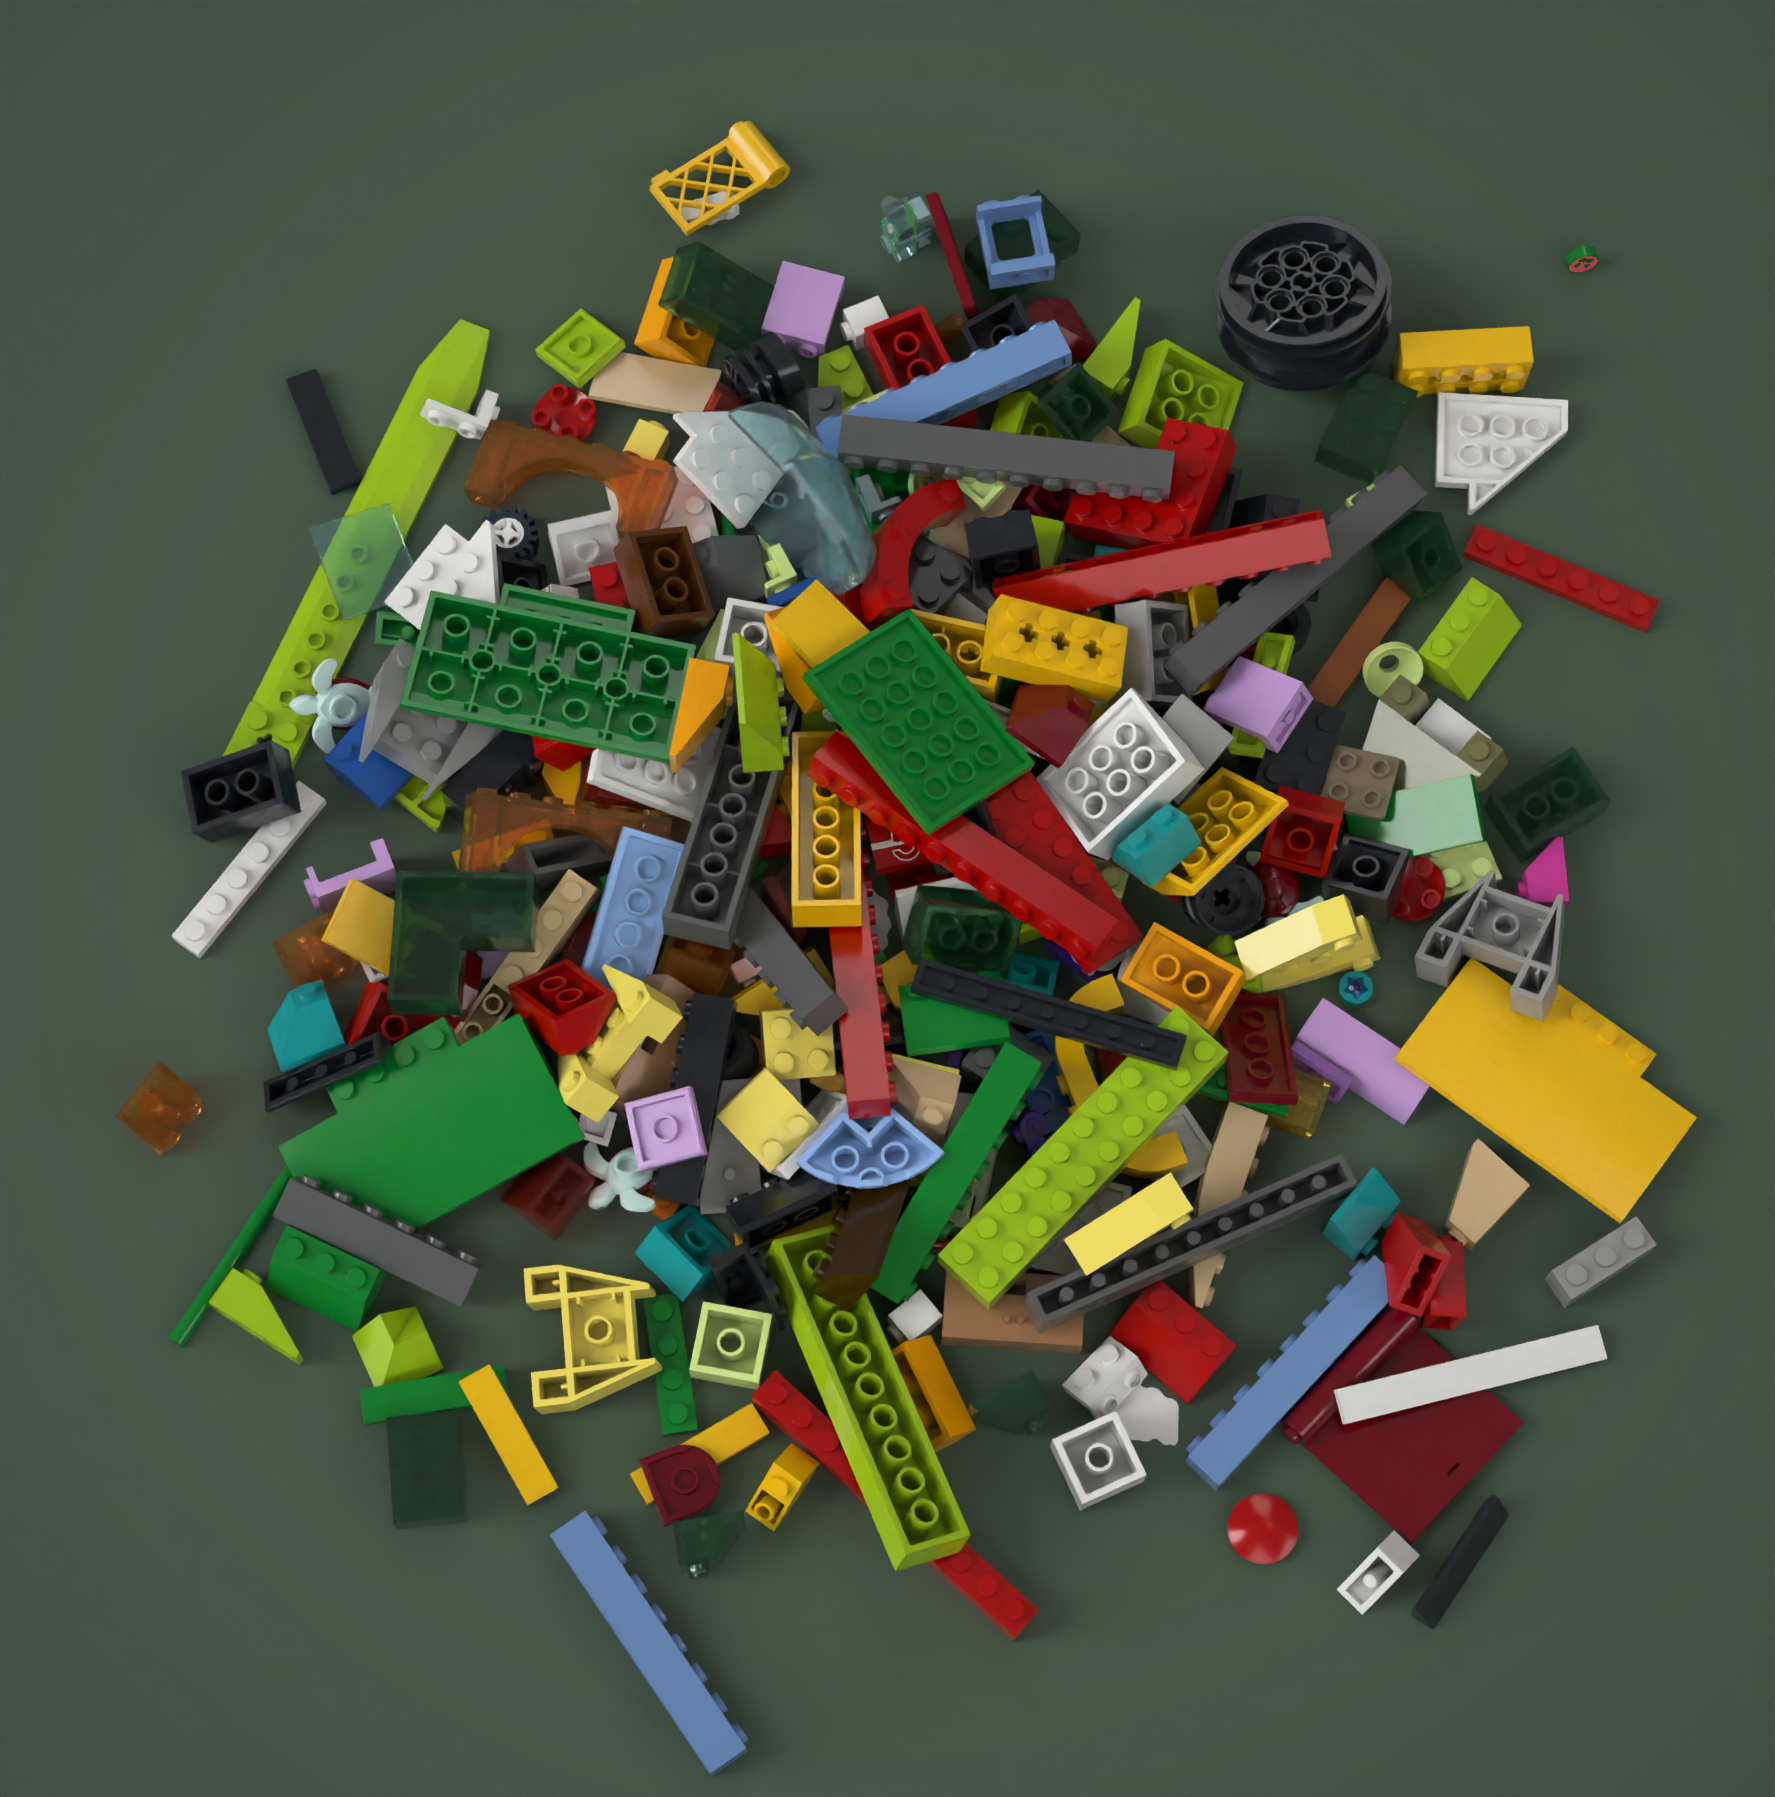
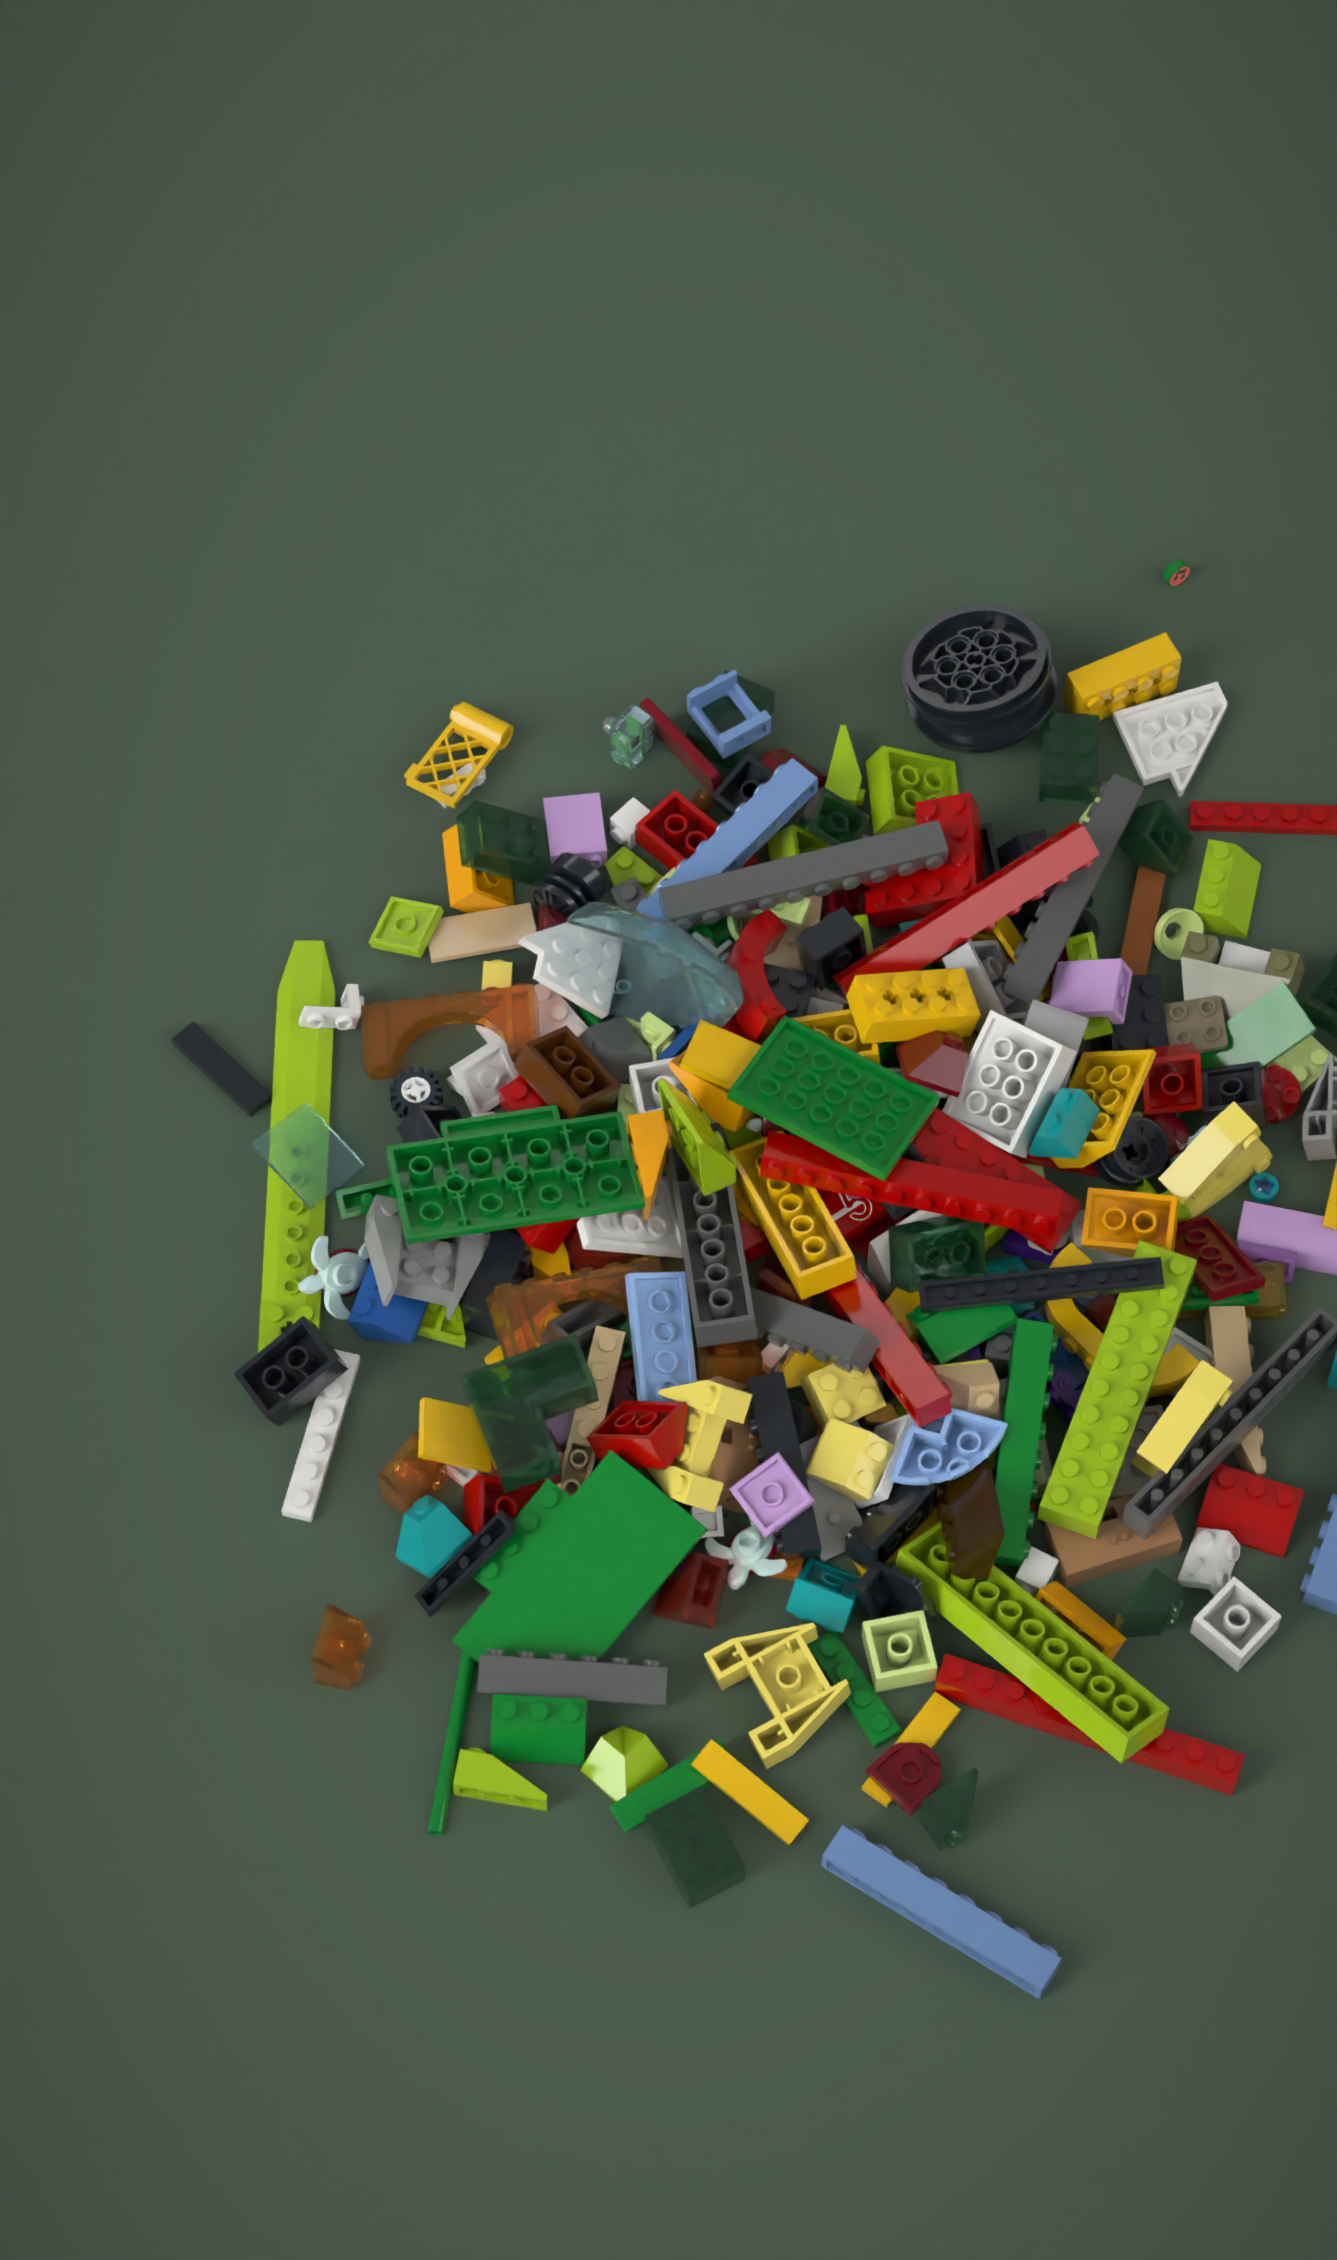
camera: 20 degrees left, 10 degrees down
(376, 875) = (401, 1425): lavender panel -> none
(450, 567) = (378, 1127): white wing -> none
(565, 412) = (416, 980): red dish -> none
(782, 1486) = (991, 1745): yellow slope -> none
(1150, 1416) = (1260, 1576): white sticker -> none

